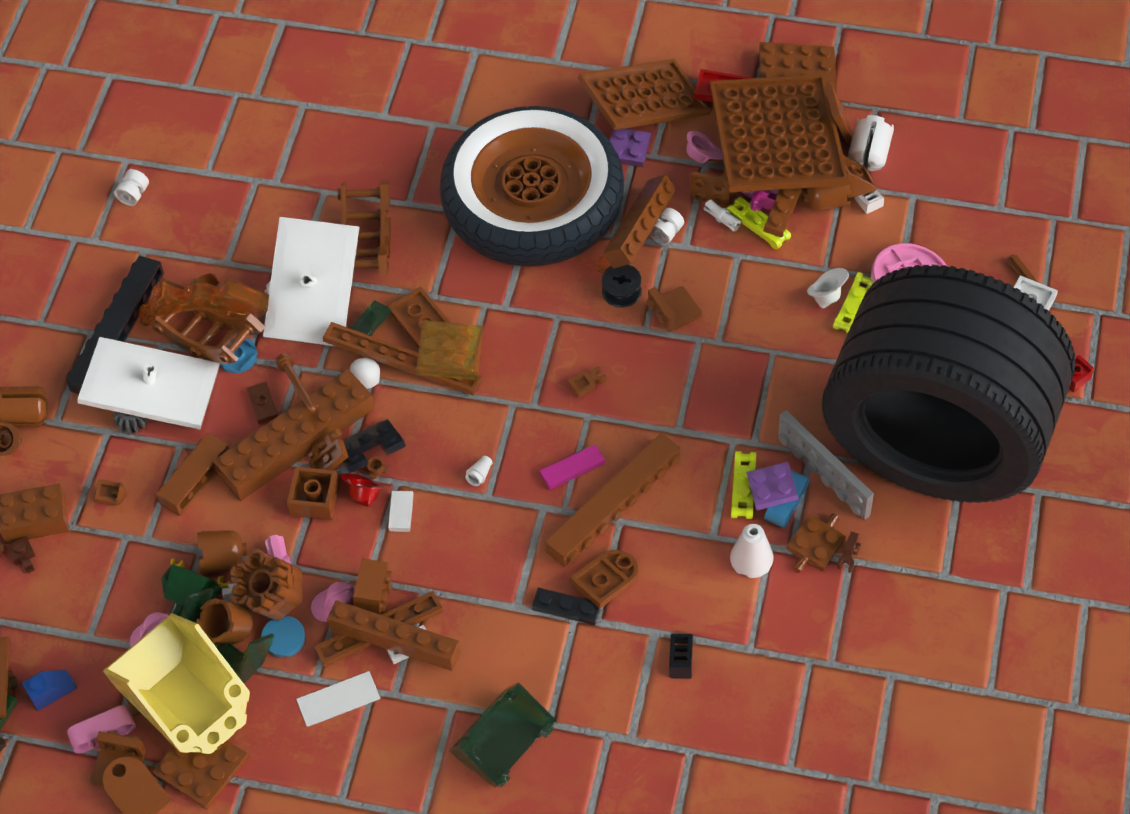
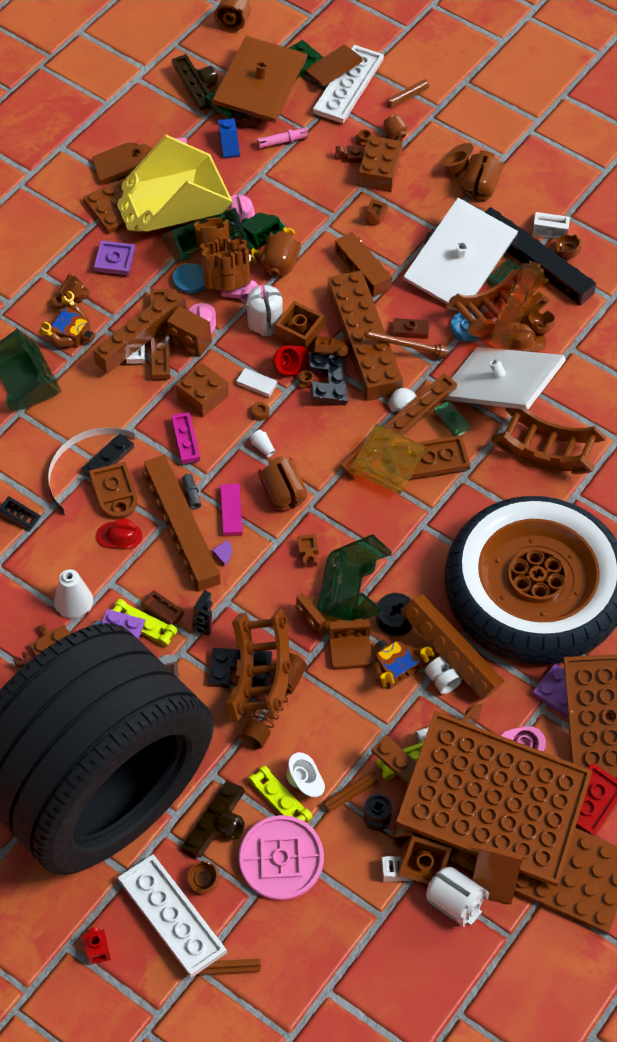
camera: 110 degrees right, 0 degrees up
(19, 626) = (288, 136): none -> bright pink pin
(70, 339) = (548, 228): none -> white tile
(91, 299) = (568, 246): none -> dark orange hair
(153, 342) = (512, 266): none -> clear green tile
(288, 725) = (114, 258): none -> medium lavender plate
(308, 530) = (262, 309): none -> white cylinder
(338, 699) = (121, 297): white sticker -> none
(362, 743) = (71, 284): none -> dark orange piece
(413, 720) = (70, 326): none -> torso
(437, 493) = (260, 411): none -> dark orange tile
(439, 550) = (202, 389): none -> dark orange brick
(507, 542) = (185, 438): none -> dark pink plate
(525, 426) = (283, 483): none -> dark orange cylinder
(569, 509) = (191, 491): none -> dark grey axle
(592, 653) = (94, 432): none -> white sticker
(618, 336) = (343, 578): none -> clear green windscreen
(626, 451) = (223, 552): none -> medium lavender tile
(649, 344) = (309, 610): none -> dark orange bracket
(654, 553) = (119, 534): none -> red piece
(672, 265) = (398, 662): none -> torso
(711, 428) = (202, 614): none -> black bracket
(719, 473) = (162, 608): none -> copper plate
(737, 340) = (256, 732): none -> dark orange piece
(742, 401) = (225, 660): none -> black plate
(751, 367) = (240, 695): none -> dark orange fence
(816, 255) = (350, 791): none -> dark orange axle
(829, 223) = (377, 812): none -> black wheel

